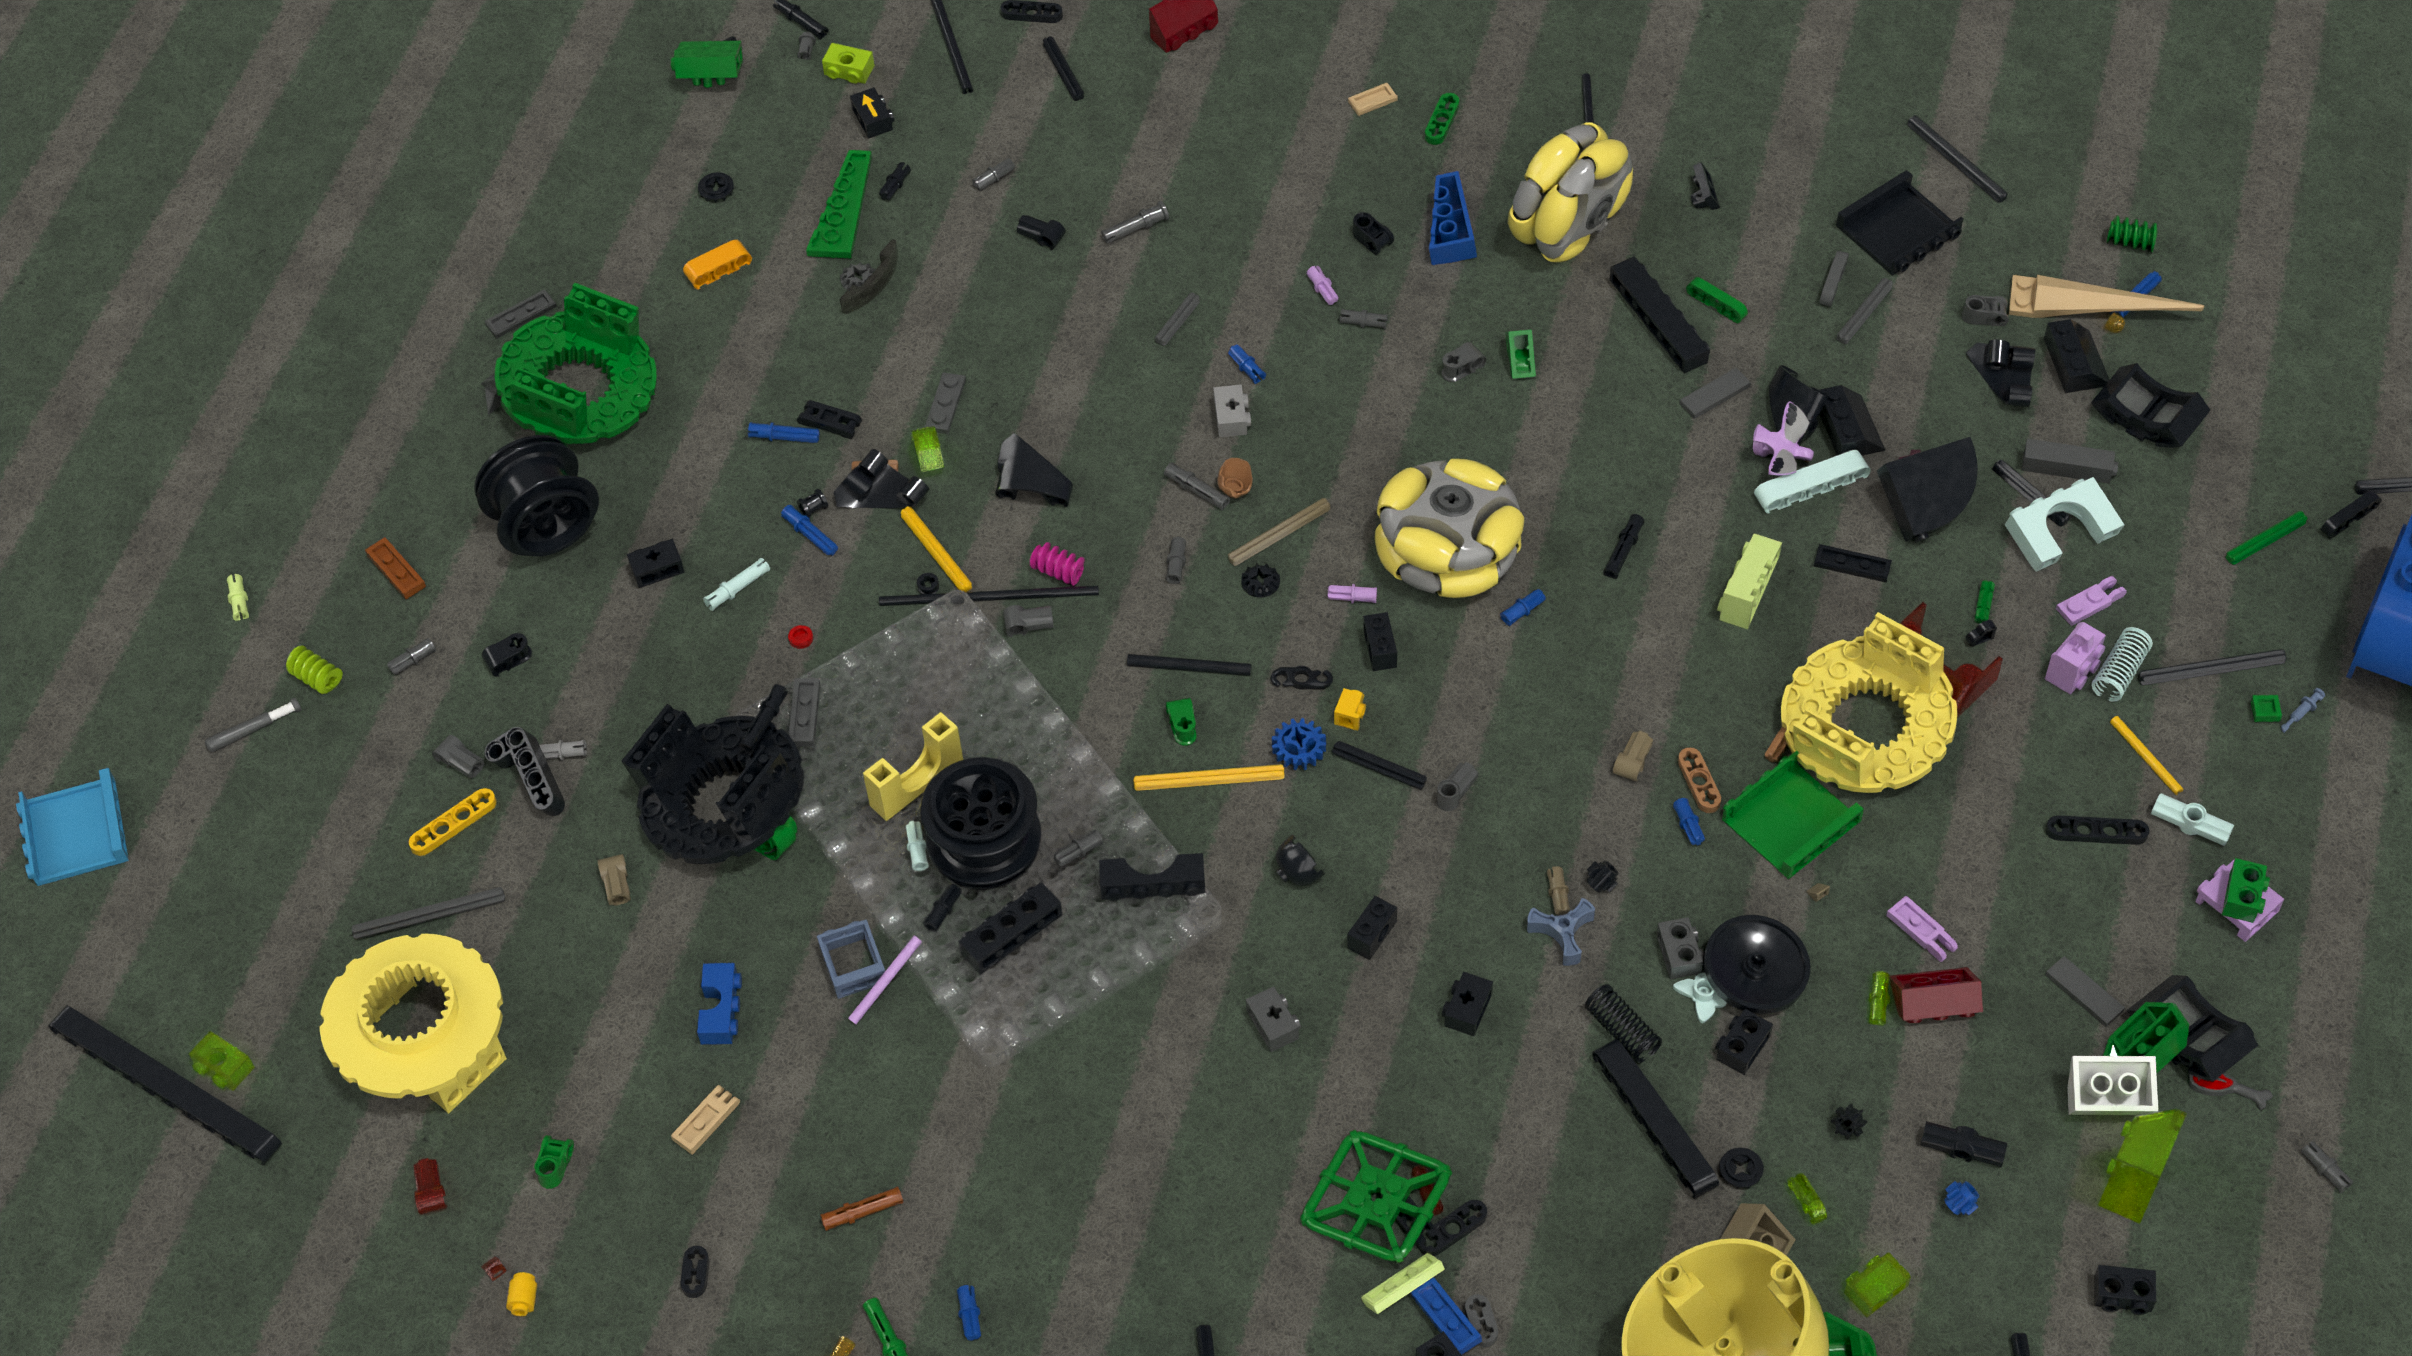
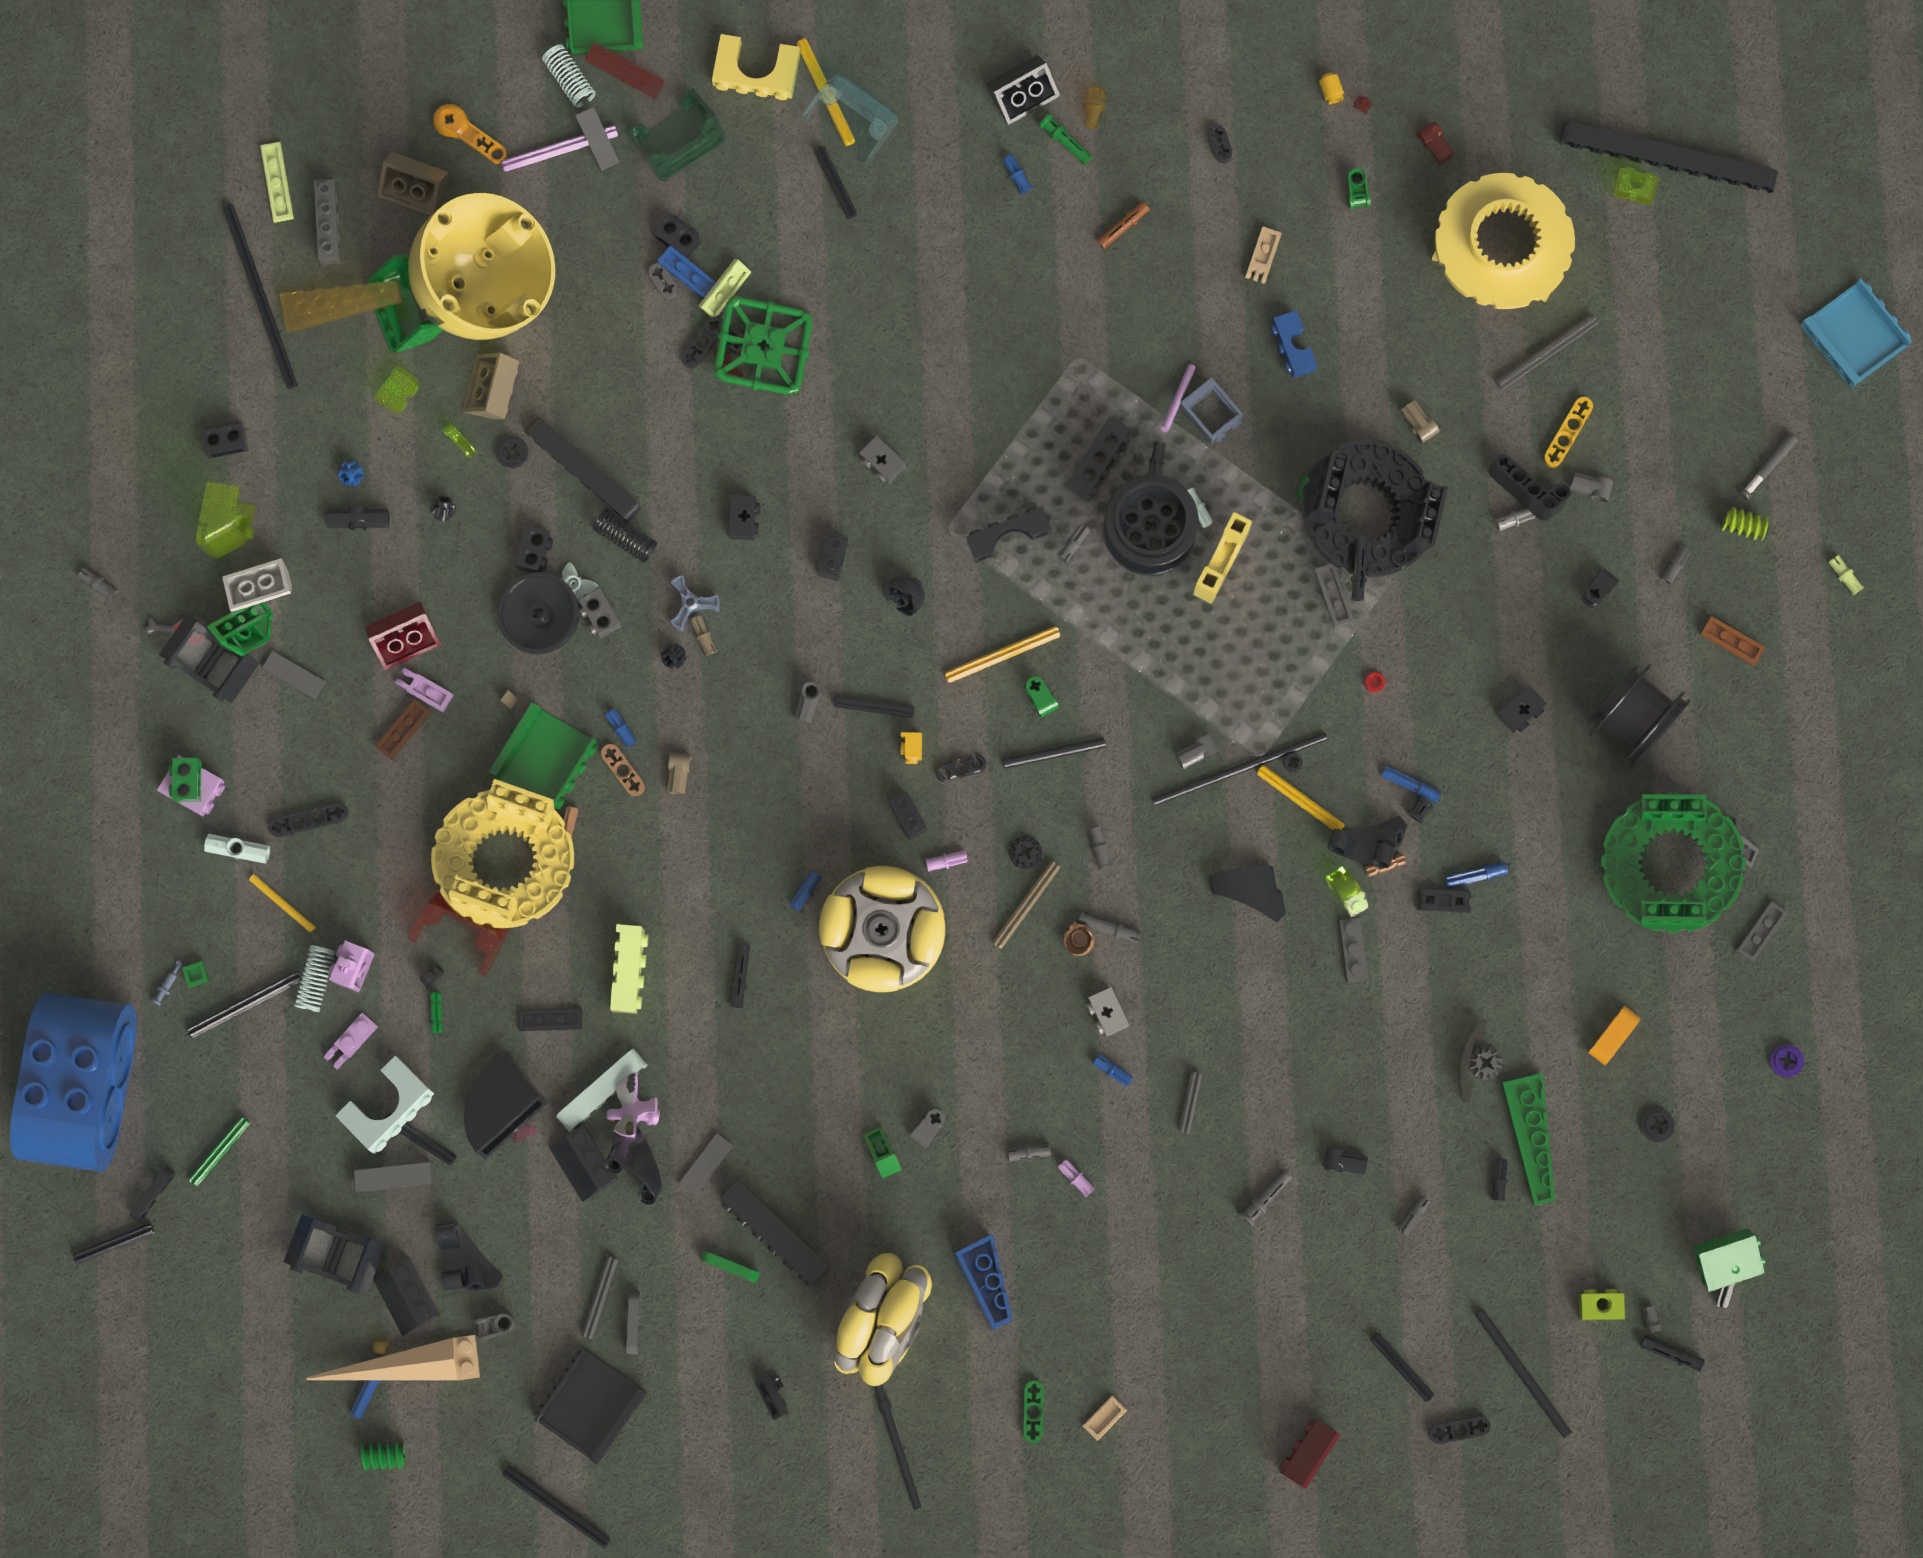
camera: 160 degrees right, 25 degrees up
(559, 197) = (1794, 1055): none -> dark purple gear
(728, 589) = (1447, 713): light aqua pin -> none
(872, 112) = (1553, 1252): black brick -> none
(1057, 564) = (1193, 811): dark pink piece -> none
(1288, 749) = (934, 707): blue gear -> none
(1371, 232) = (1050, 1247): black piece -> none
(1879, 998) = (443, 619): clear neon green pin -> none
(1958, 892) = (403, 729): none -> reddish brown plate

